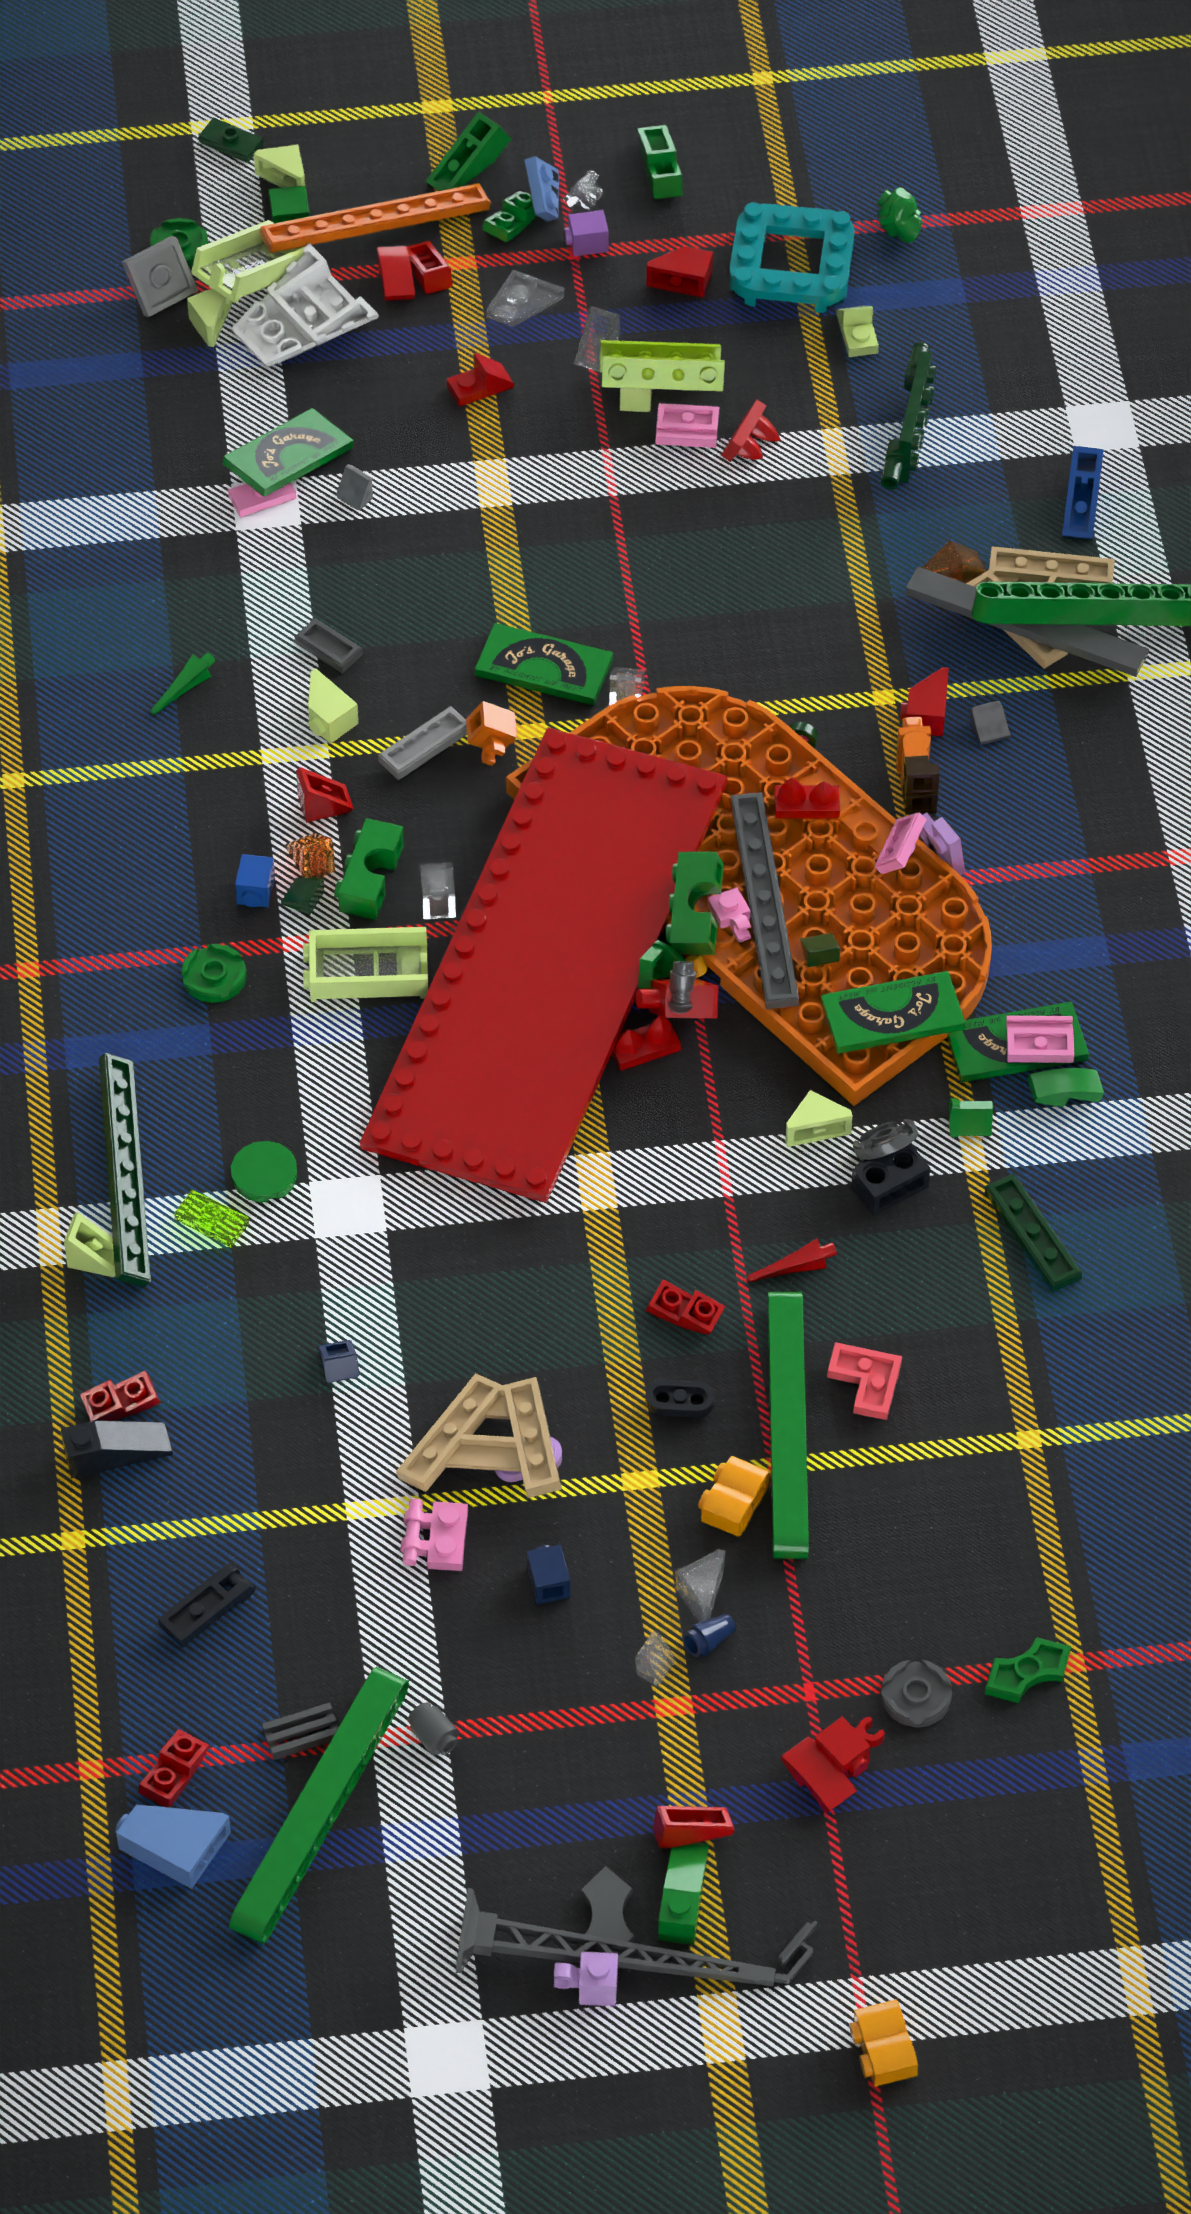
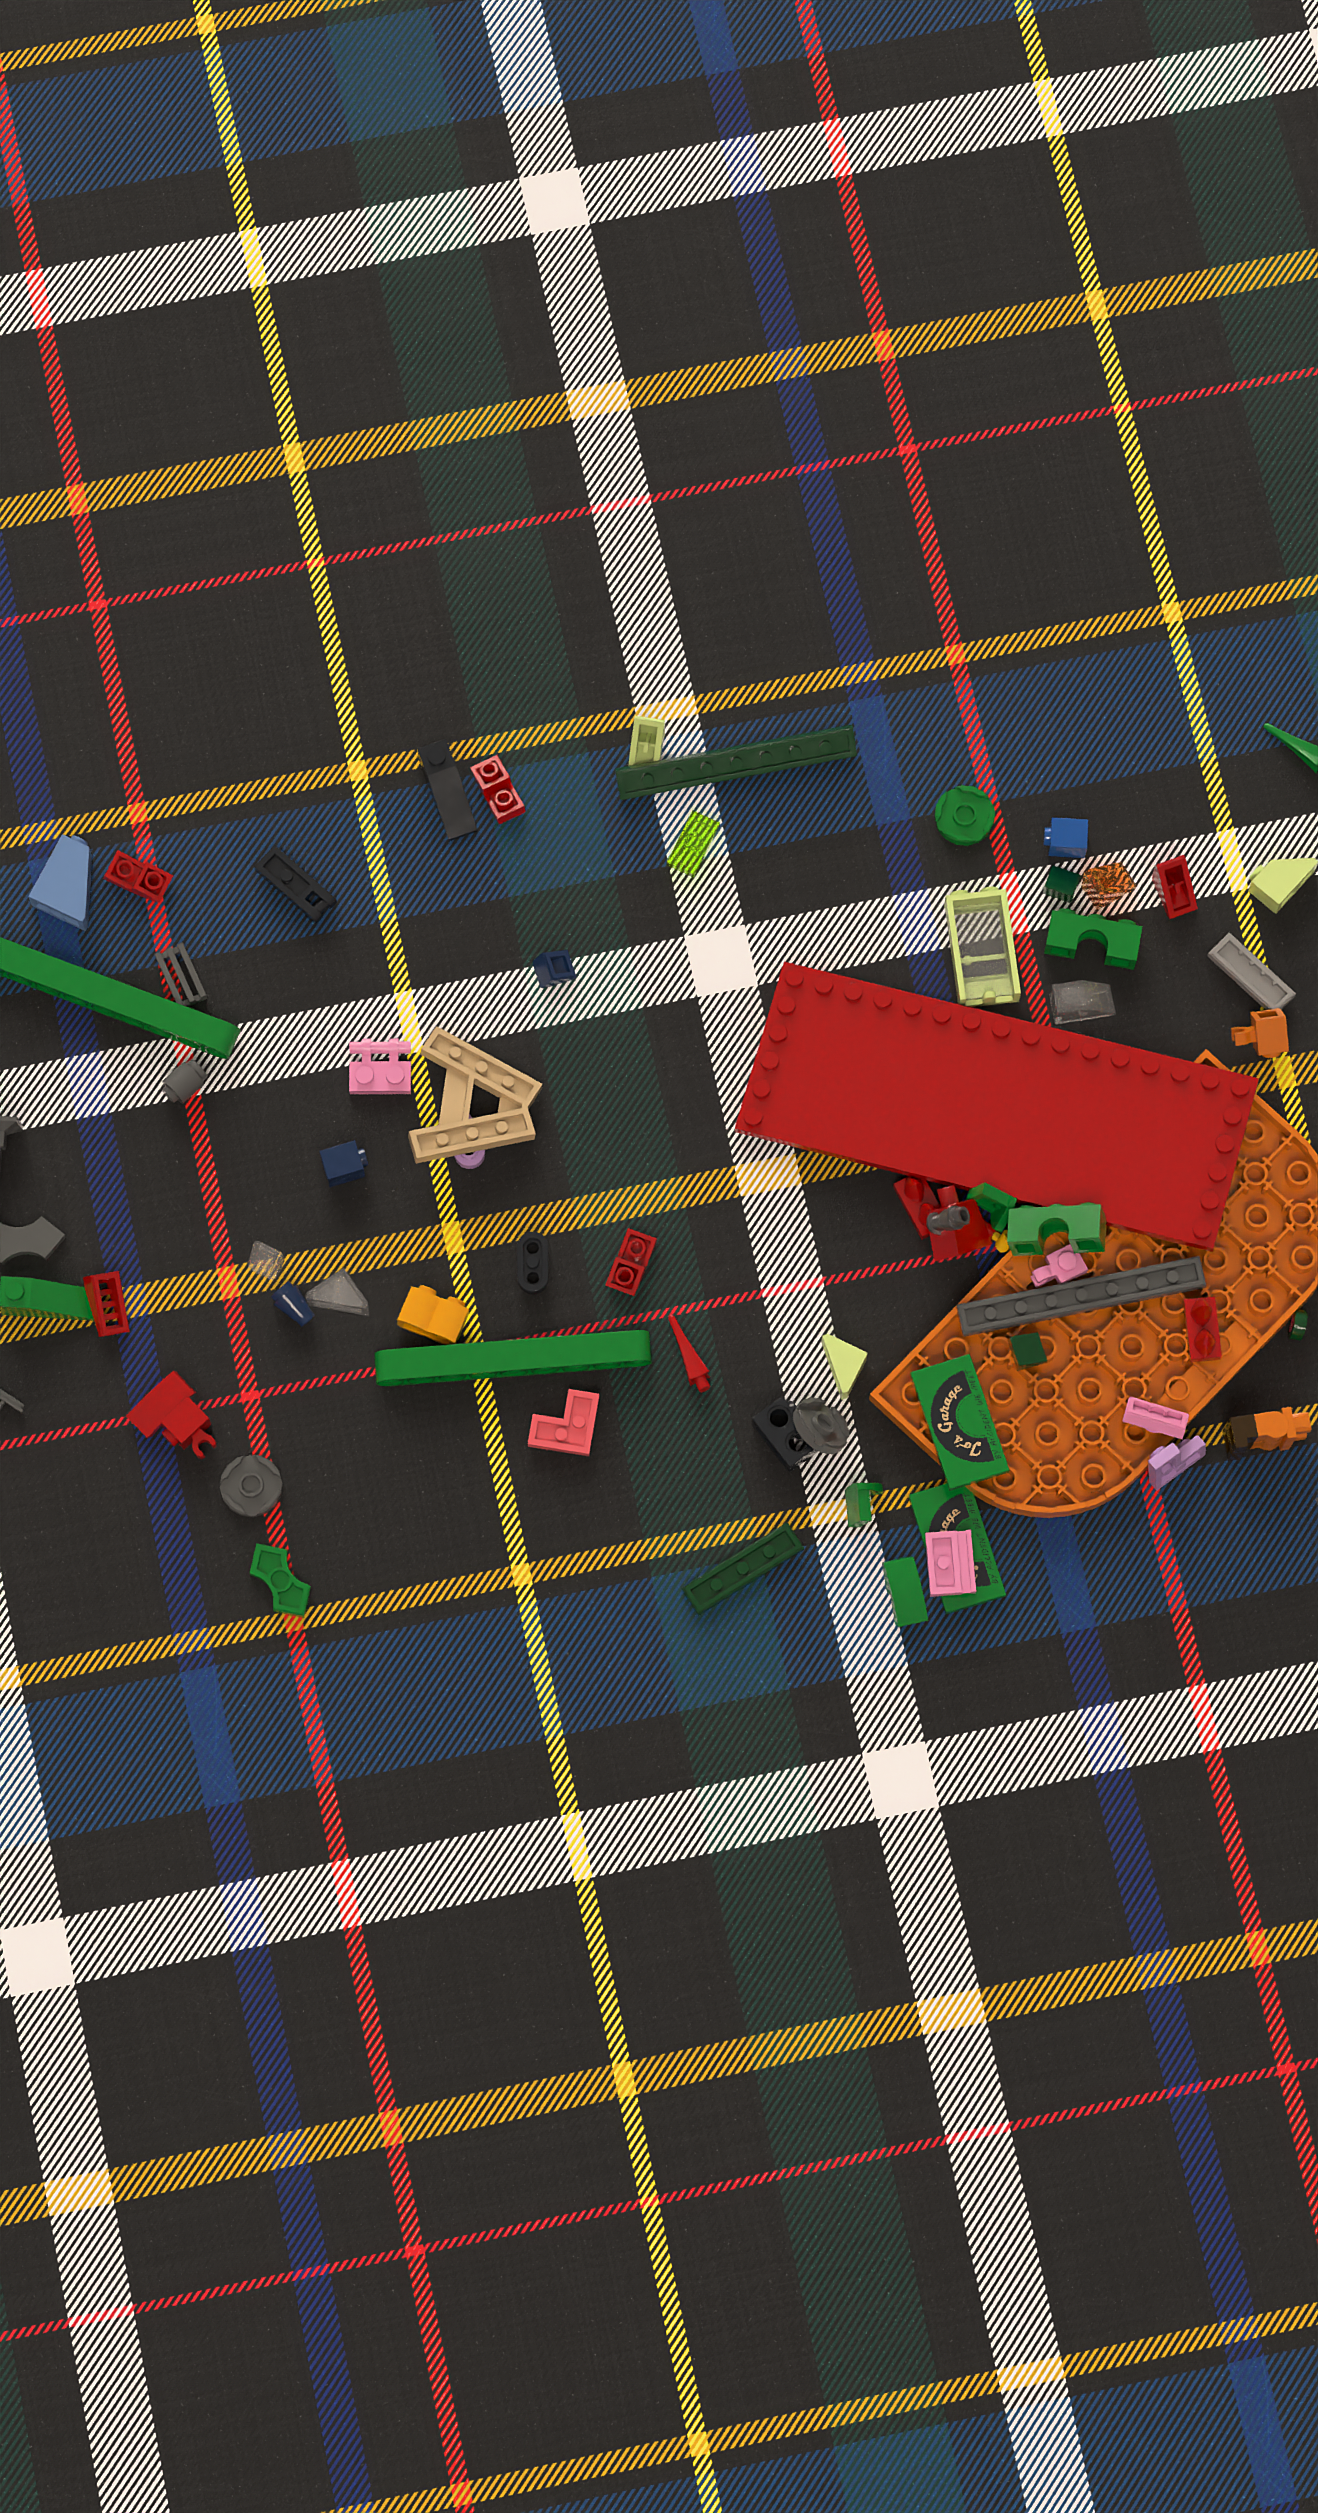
camera: 85 degrees right, 20 degrees up
(264, 1171) = (747, 883): green tile -> none

